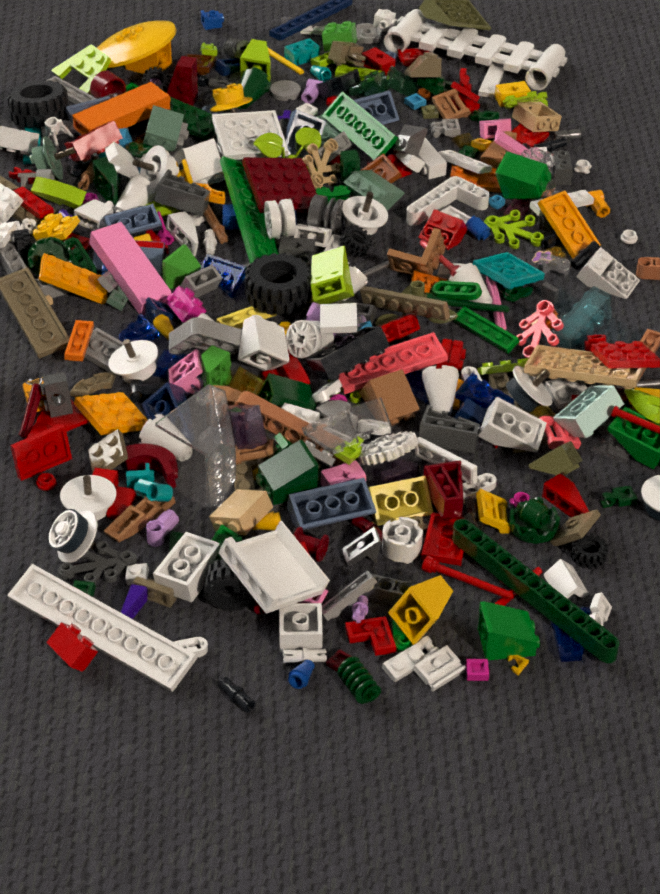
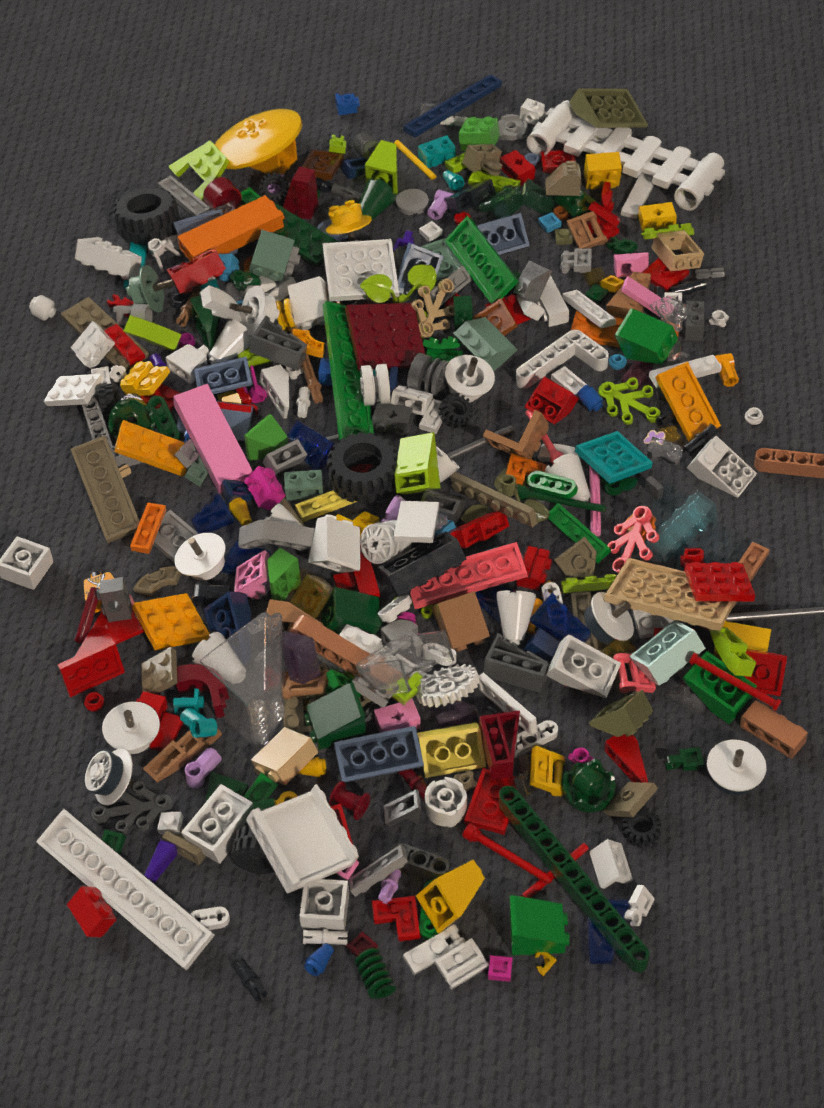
camera: 10 degrees right, 10 degrees up
(221, 303) = (303, 484): none -> sand green brick
(457, 56) = (601, 169): none -> yellow brick
(490, 348) = (578, 560): none -> dark tan plate

